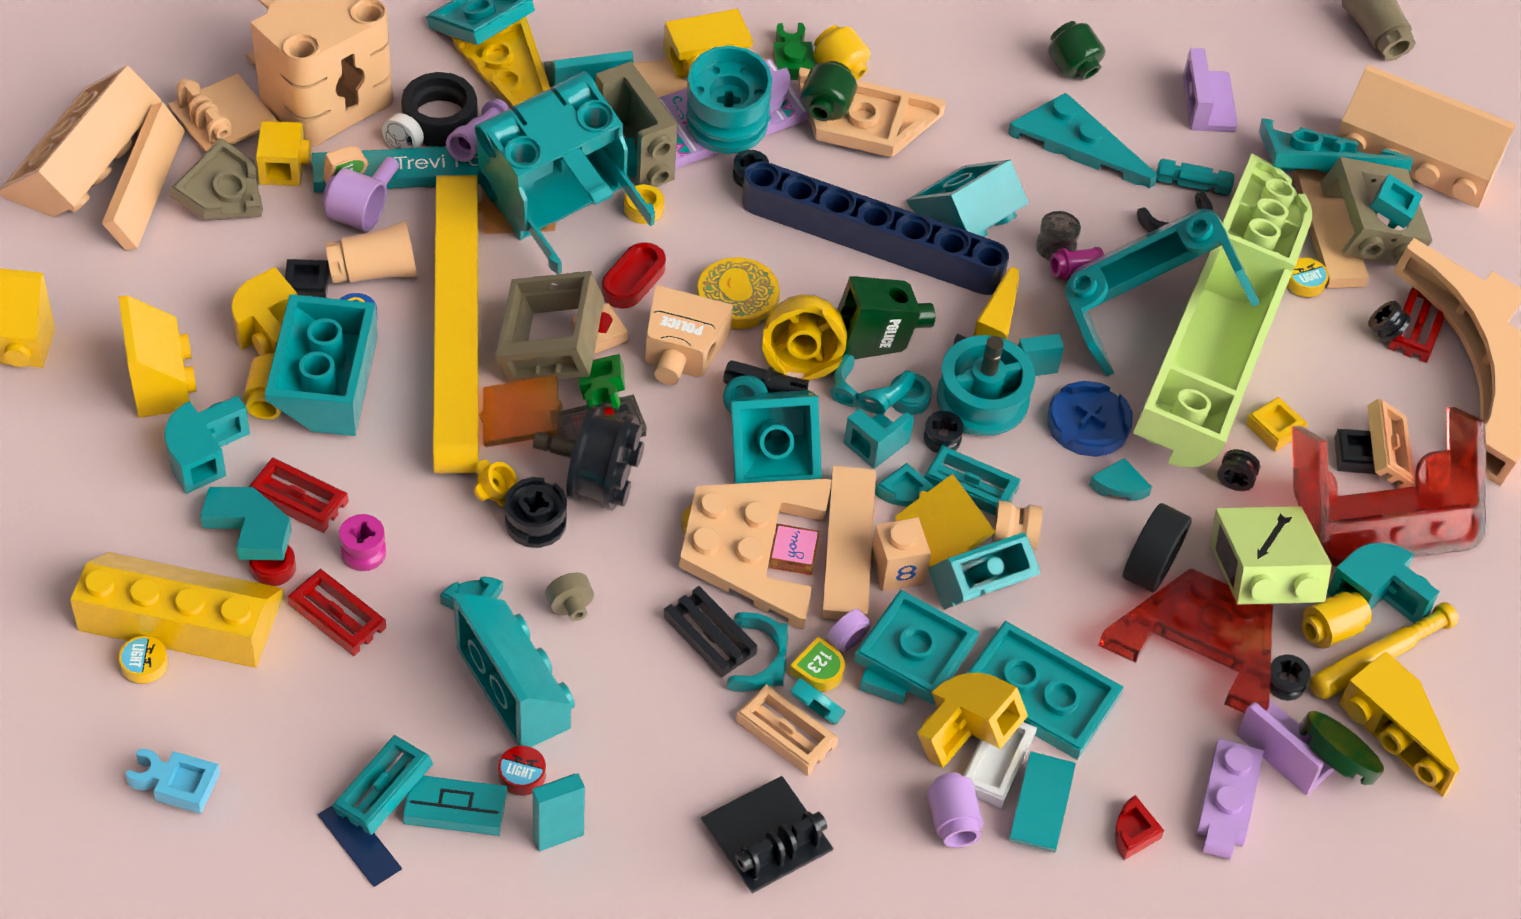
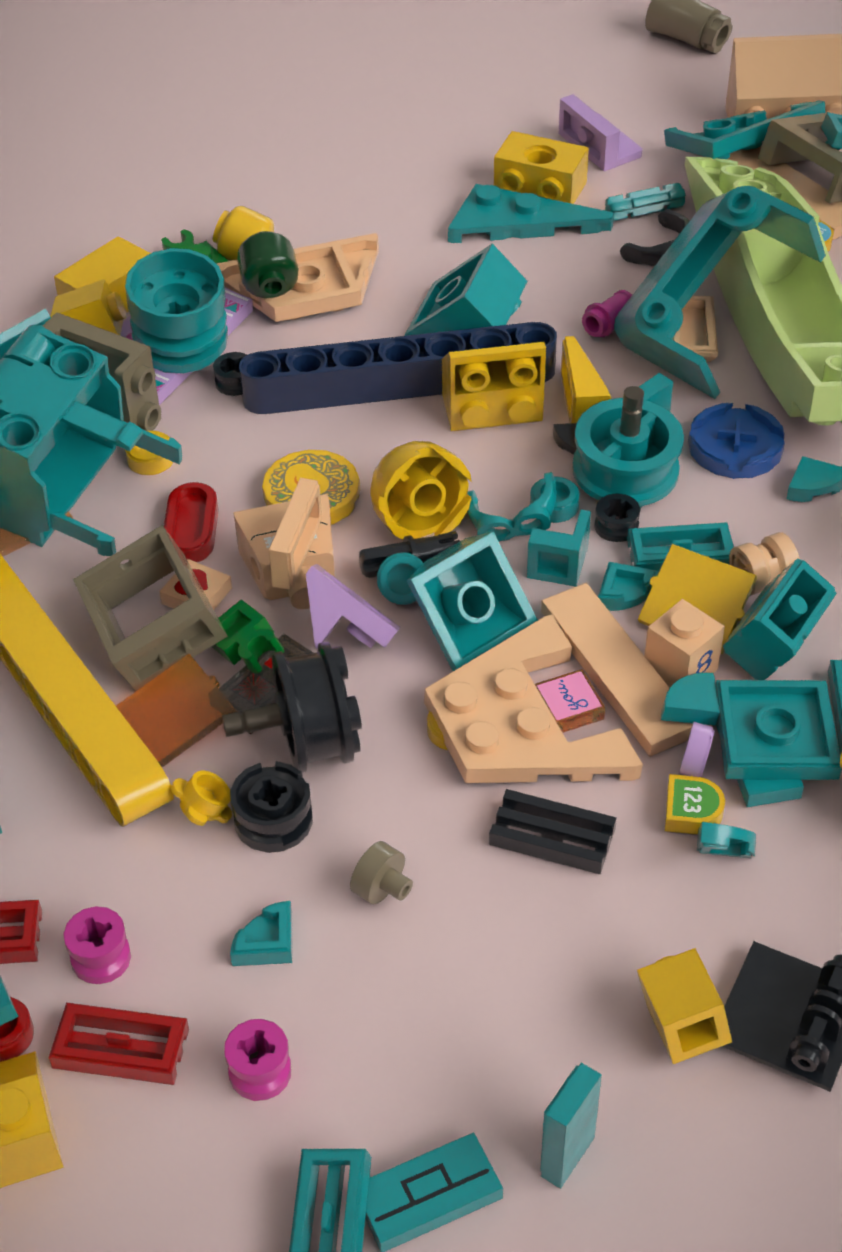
camera: 25 degrees left, 5 degrees down
(406, 680) = (269, 1071): none -> dark pink wheel
(511, 669) = (381, 995): teal slope -> none
(522, 770) = (472, 1103): tile -> none
(666, 67) = (93, 305): none -> yellow brick
(678, 390) = (332, 600): none -> lavender slope
(679, 325) = (295, 534): none -> light nougat tile
(694, 786) = (684, 1005): none -> yellow brick
(775, 672) = (630, 797): teal cap -> none
(781, 735) = (713, 896): light nougat tile -> none
(872, 593) = (692, 700): none -> teal tile
(881, 316) = (480, 432): dark green torso -> none
(933, 277) = (494, 386): none -> yellow slope
(1057, 231) = (572, 295): clear smoke wheel -> none
(1076, 50) = (457, 146): dark green head -> none
(1128, 105) = (541, 167): none -> yellow brick
(1136, 310) = (699, 327): none -> light nougat tile

